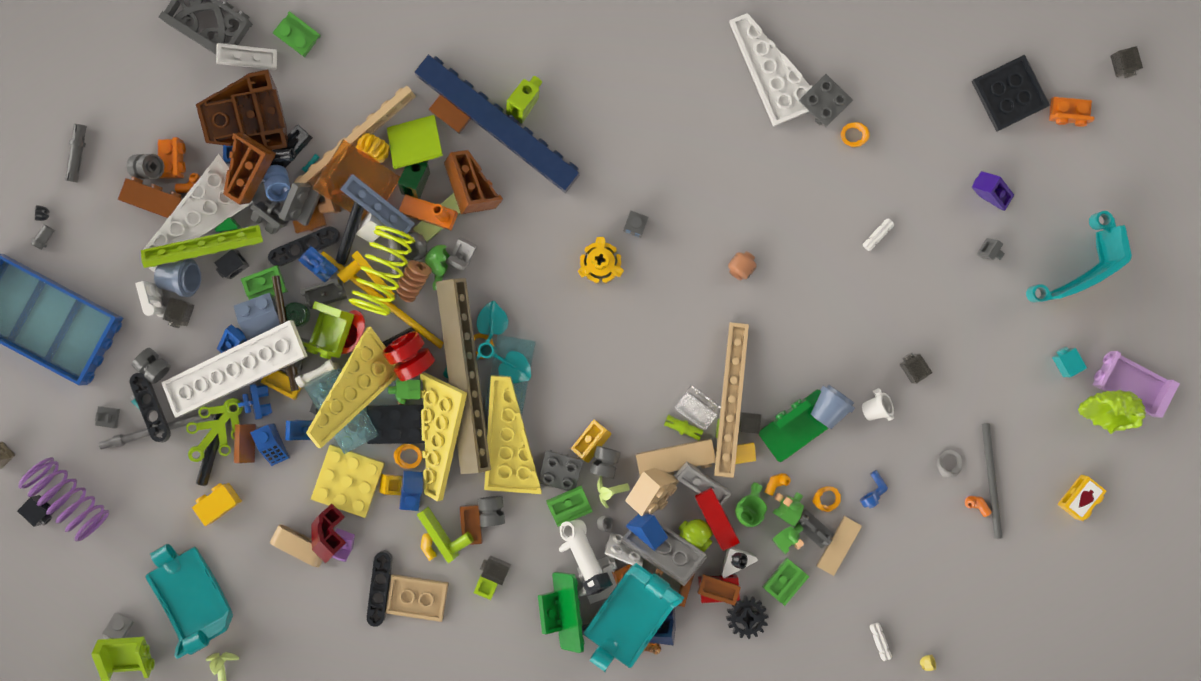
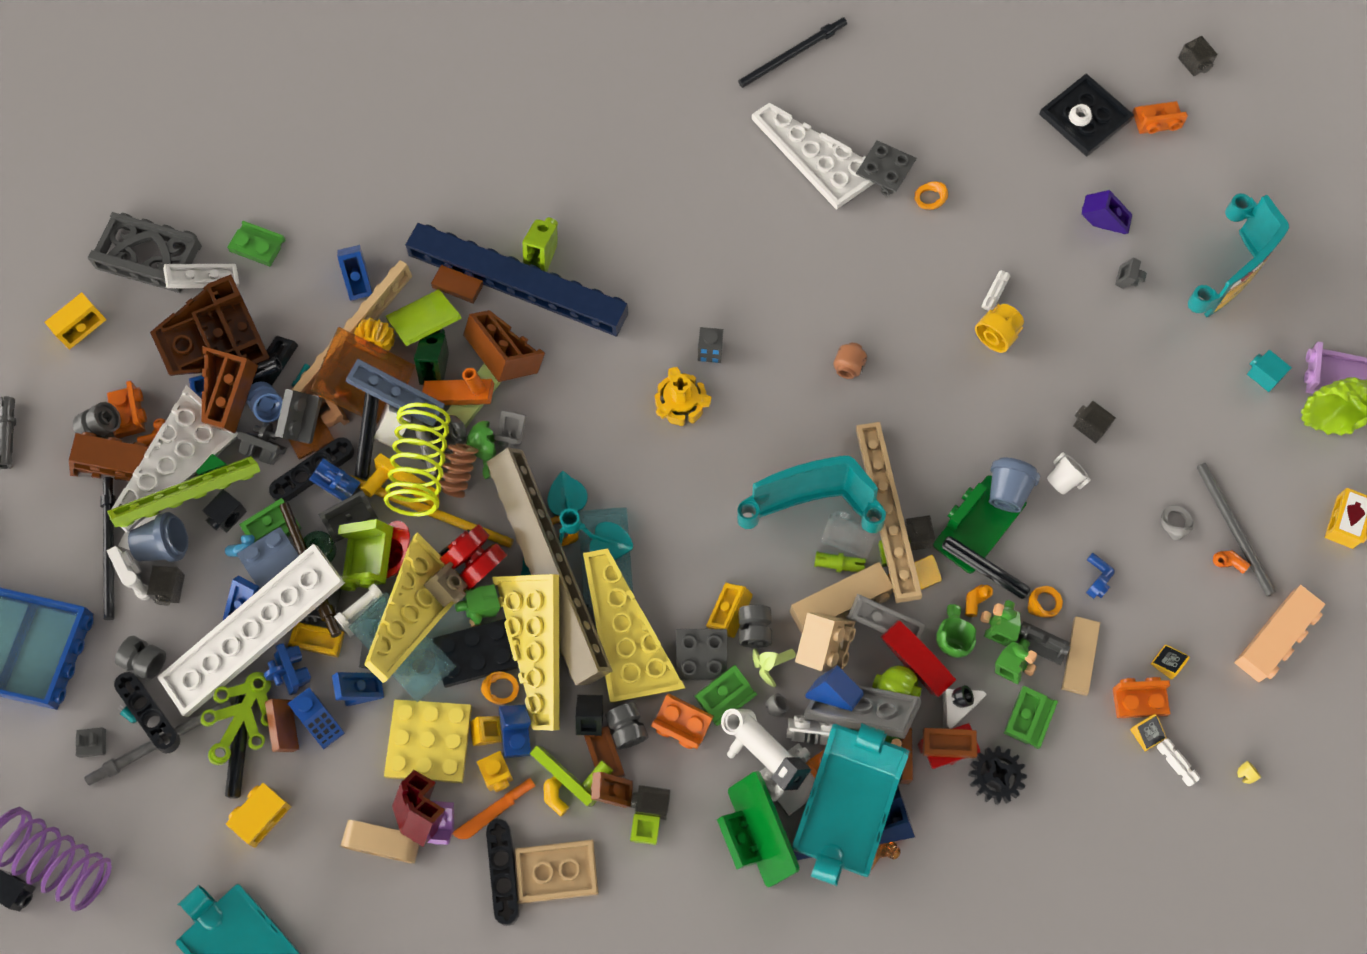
camera: 15 degrees left, 20 degrees down
(141, 71) = (75, 321): none -> yellow brick
(145, 232) = (107, 501): none -> black bar
(235, 299) = (232, 550): none -> dark azure arm
(369, 83) = (354, 272): none -> blue slope
(378, 375) = (446, 585): none -> dark tan brick
(383, 543) = (487, 815): none -> orange piece
(390, 517) = (495, 772): none -> yellow bracket
(466, 496) = (589, 715): none -> black brick
(468, 556) = (611, 789): none -> dark orange plate
(532, 518) = (682, 722): none -> orange bracket
(695, 366) = (812, 482): none -> teal panel
(790, 462) = (985, 567): none -> black axle
(867, 614) = (1149, 732): none -> slope
(869, 271) = (1000, 327): none -> yellow piece
(871, 590) = (1141, 698): none -> orange bracket
(903, 568) = (1169, 661): none -> slope
(992, 570) = (1280, 633): none -> light nougat brick
(1007, 92) = (1083, 111): none -> white plate

